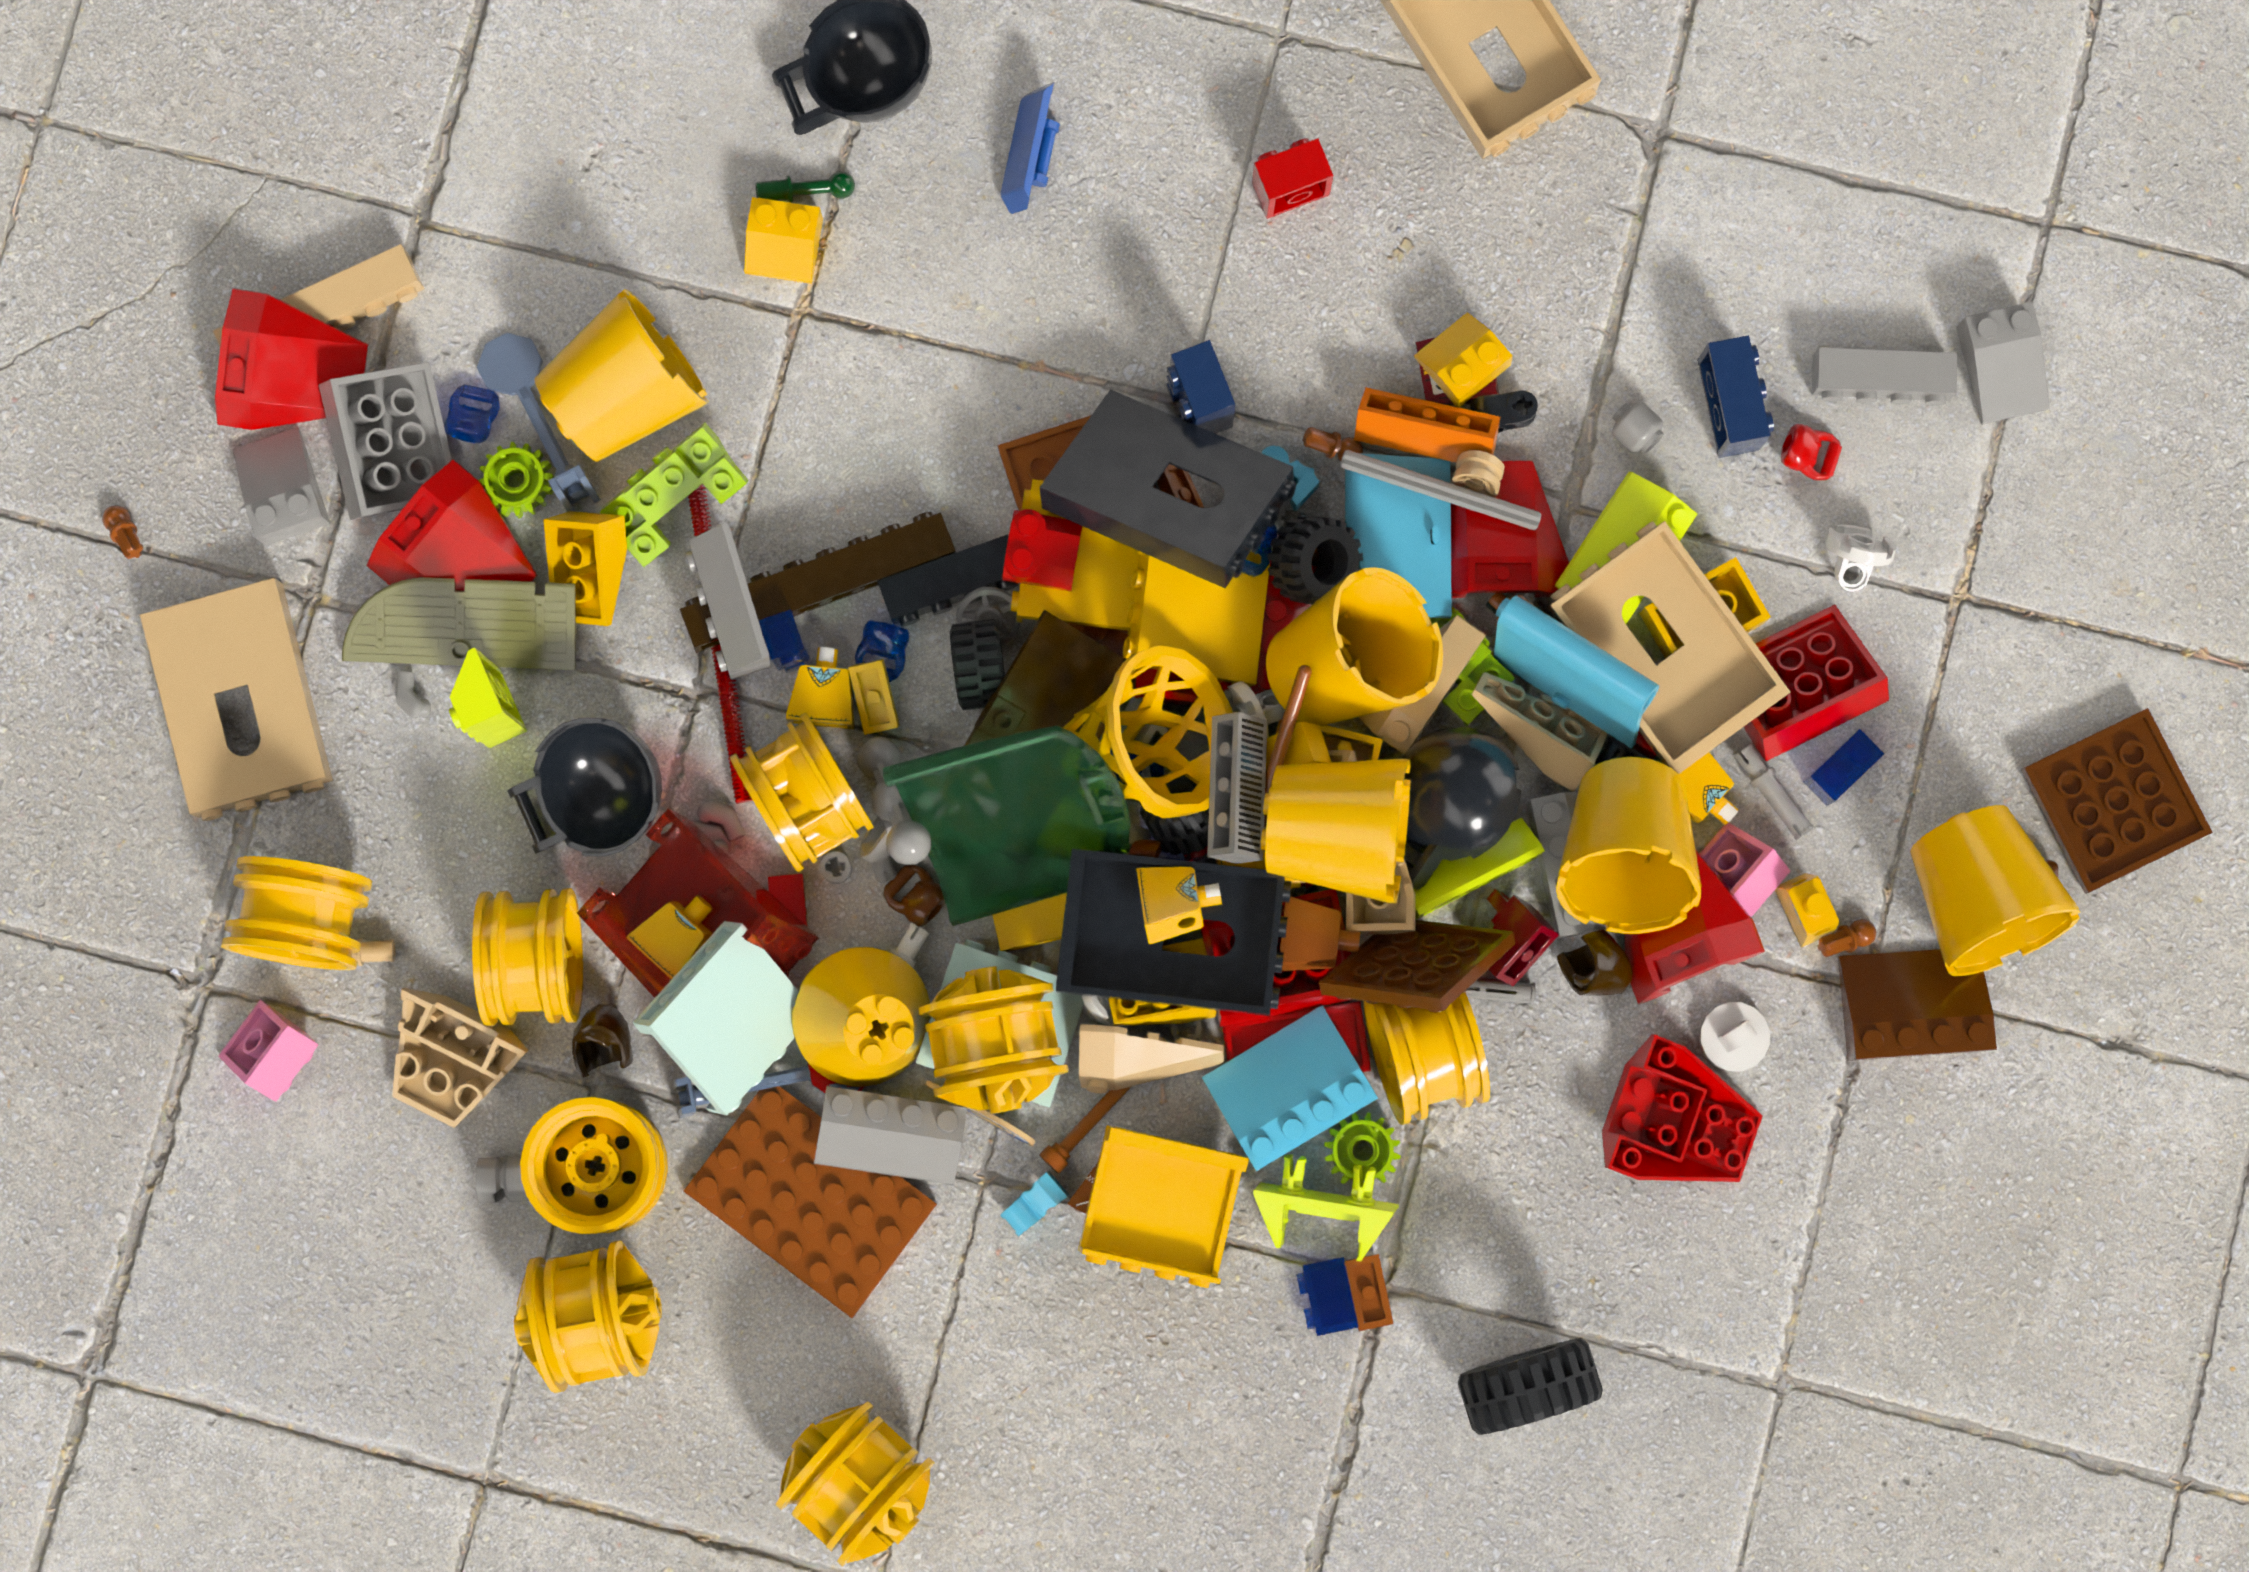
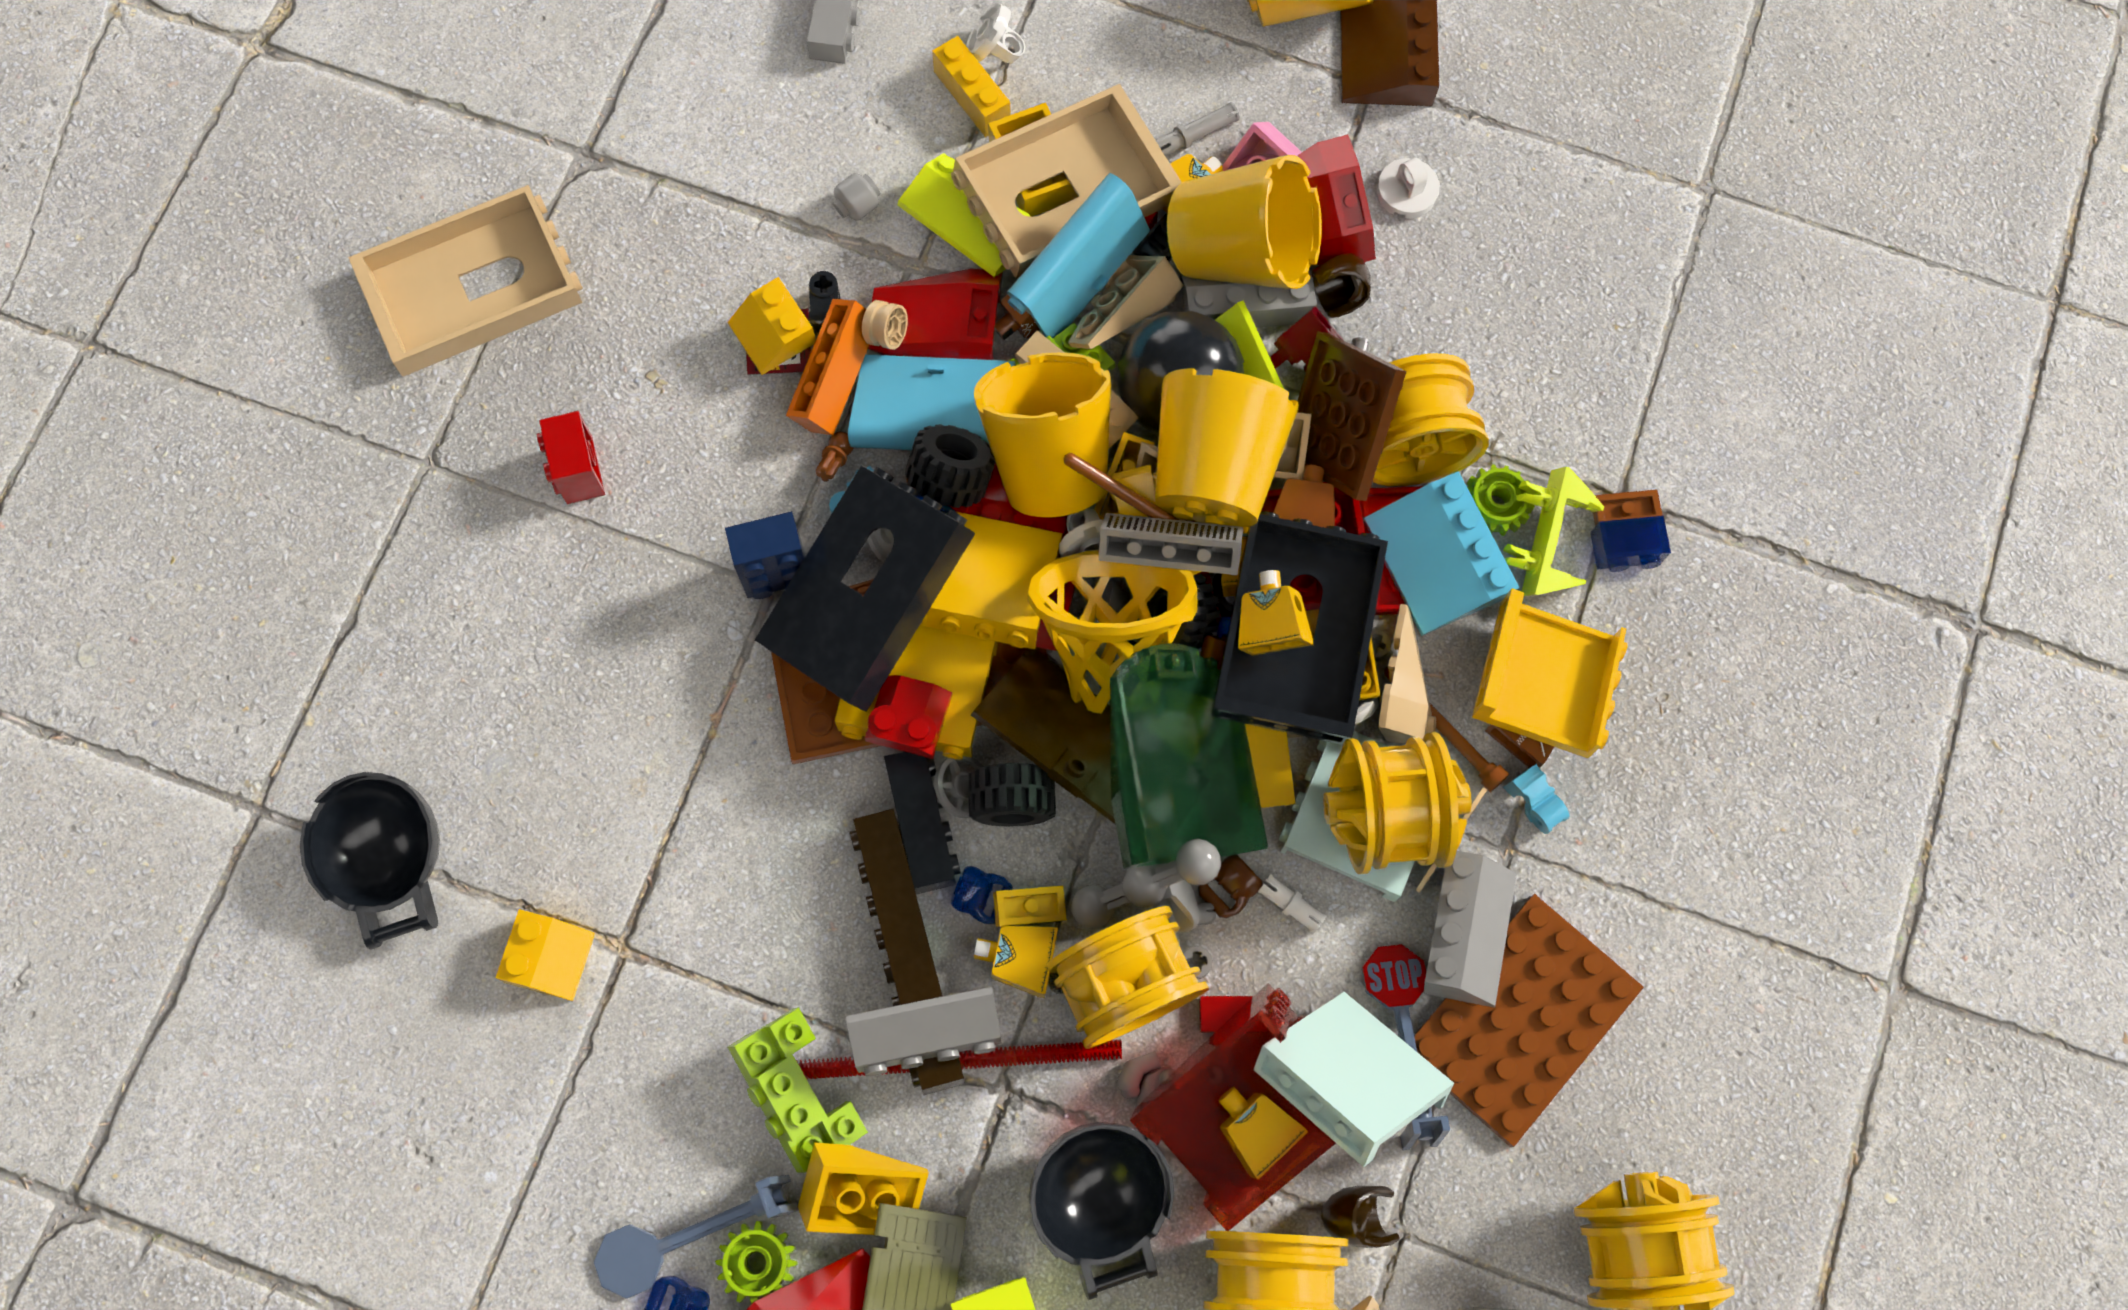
camera: 90 degrees left, 10 degrees down
(563, 1128) = (1534, 1200): yellow wheel -> none
(618, 380) = (670, 1135): yellow cone -> none
(784, 641) = (965, 978): clear blue brick -> none
(839, 185) = (496, 895): dark green pin -> none
(855, 1483) = (1821, 988): yellow wheel -> none
(860, 1016) = (1353, 944): yellow cone -> none
(1029, 149) = (495, 701): blue piece -> none
(1440, 490) = (893, 358): light grey axle -> none
(1530, 1386) = (1727, 367): black tyre -> none
(1677, 1119) = (1480, 240): red wedge -> none
(1735, 396) = (840, 111): dark blue brick -> none
(1792, 535) = (970, 84): none -> yellow brick
(1802, 449) = (894, 73): red piece -> none
(1807, 908) = (1302, 110): yellow torso -> none
(1827, 678) = (1095, 64): red slope -> none
(1843, 767) = (1180, 71): clear blue brick -> none
(1847, 938) = (1328, 88): dark orange axle -> none

